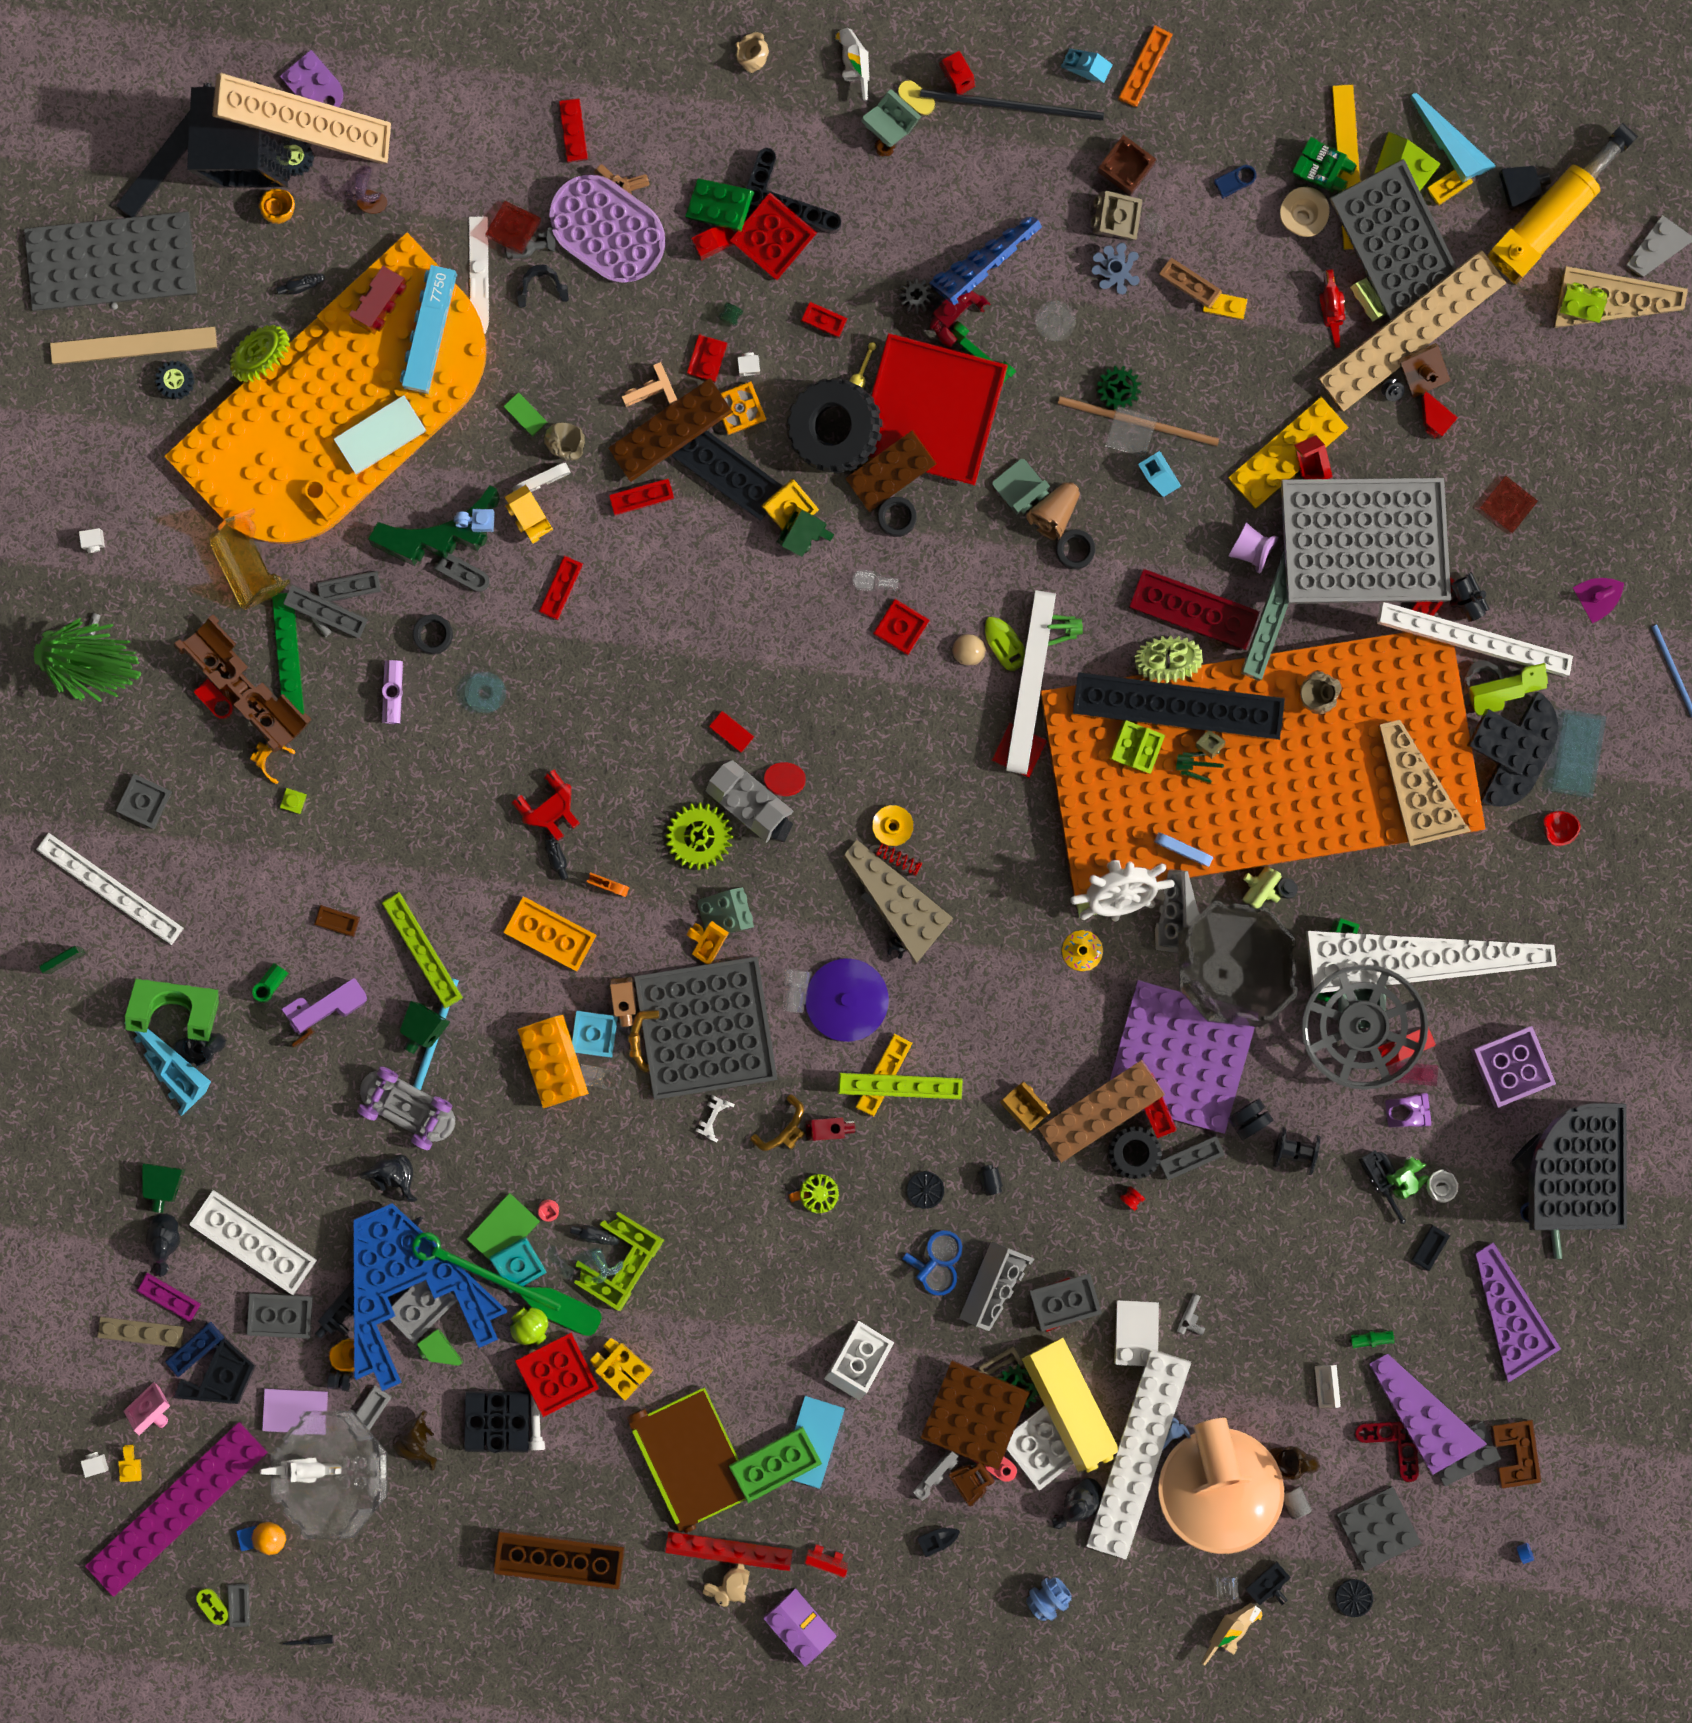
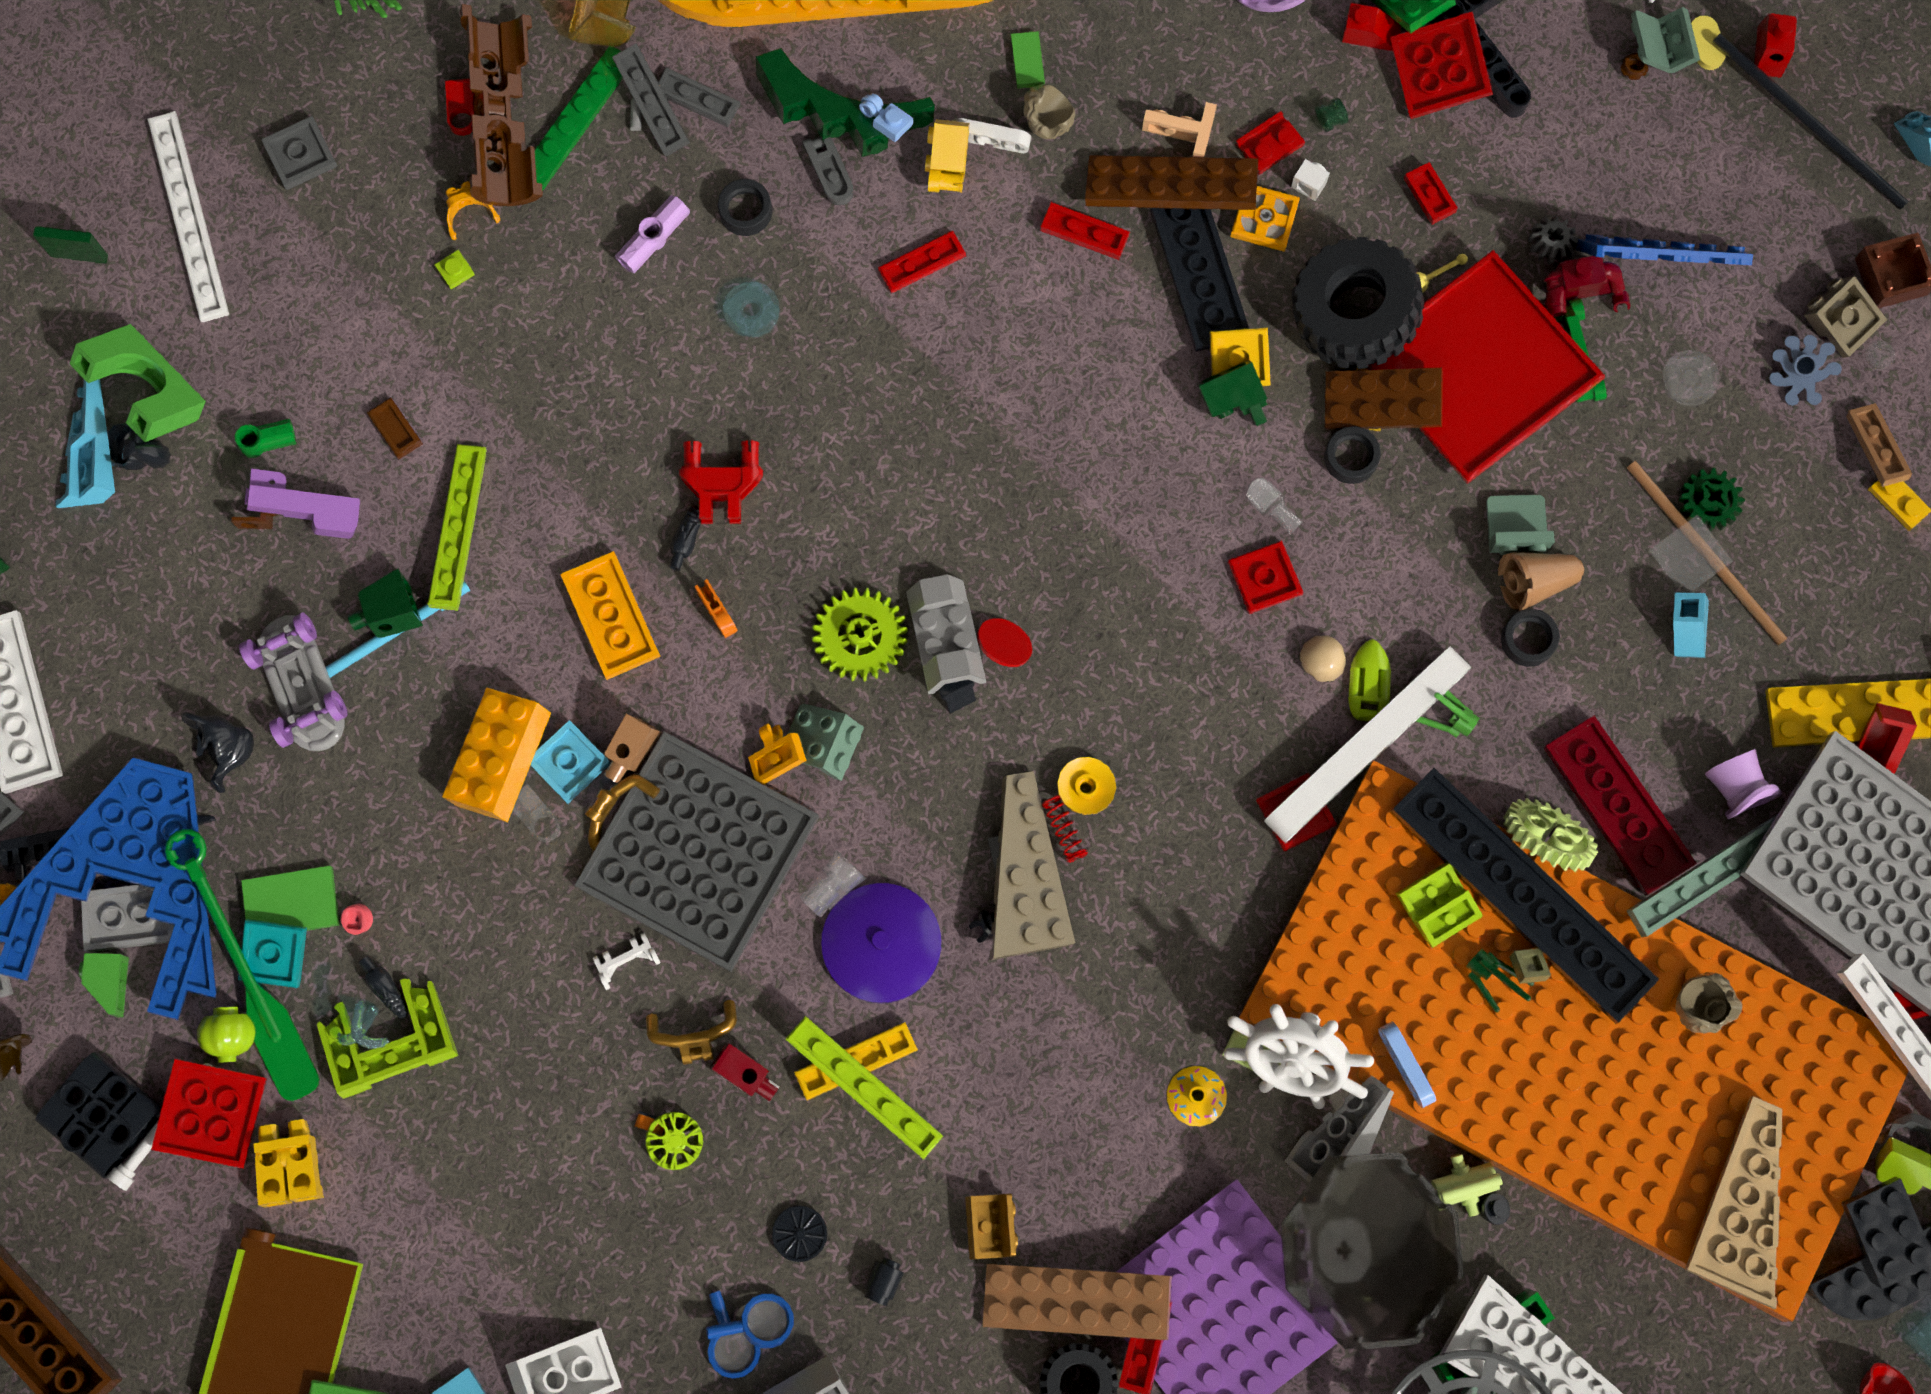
camera: 40 degrees right, 10 degrees down
(731, 731) = (986, 549): red tile -> none

